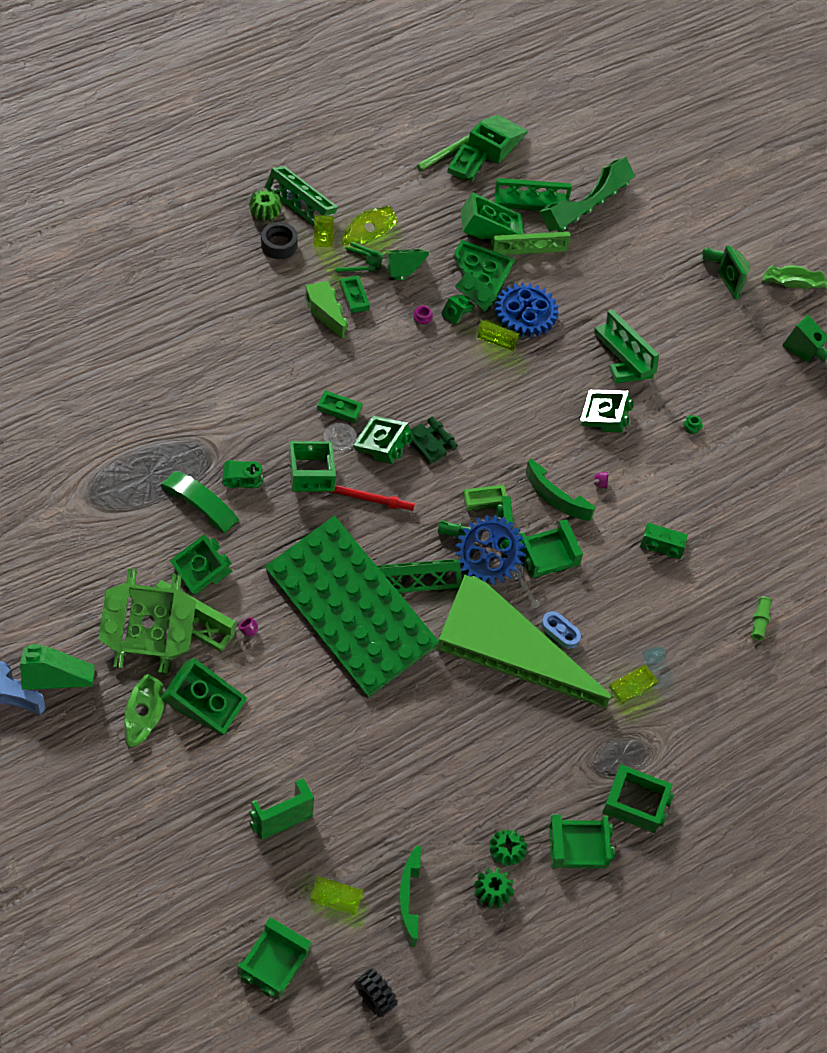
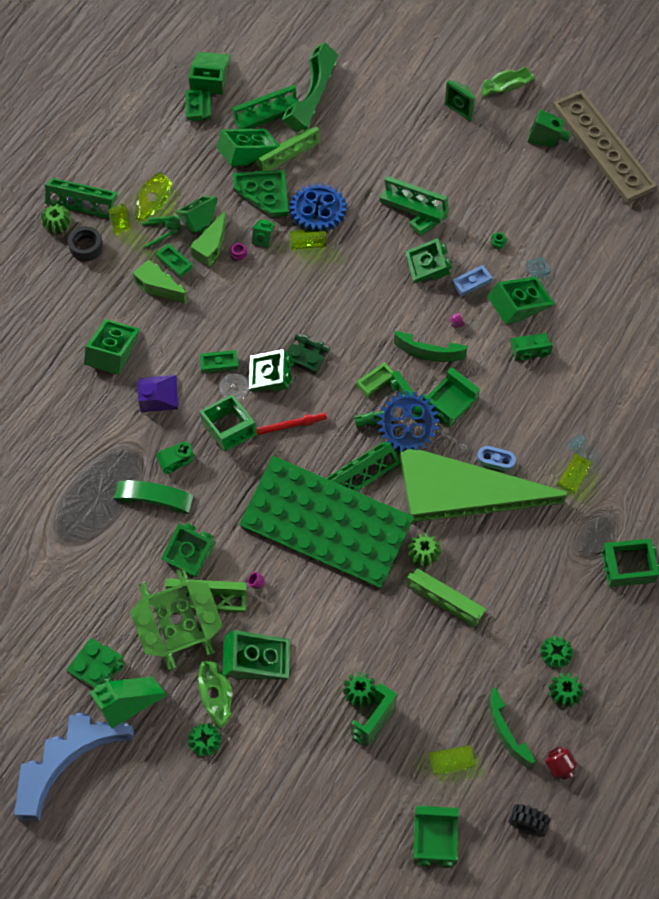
camera: 20 degrees left, 5 degrees up
(48, 626) = (95, 664): none -> green plate
(112, 756) = (199, 747): none -> green gear
(244, 344) = (110, 346): none -> green slope
(262, 408) = (157, 393): none -> dark purple slope
(278, 774) = (359, 696): none -> green gear
(399, 294) = (209, 244): none -> bright green slope
(426, 737) = (445, 597): none -> bright green fence
(440, 677) = (424, 556): none -> bright green gear
(443, 153) = (174, 104): bright green bar -> none
(444, 956) = (561, 763): none -> dark red head
(476, 291) = (271, 211): green plate -> none
(580, 843) = (608, 619): green panel -> none
(641, 449) = (472, 280): none -> medium blue plate
(679, 489) = (519, 299): none -> green slope
(712, 255) = (431, 93): green pin -> none
(718, 469) = (538, 267): none -> clear light blue tile
(761, 618) = (638, 372): bright green pin -> none

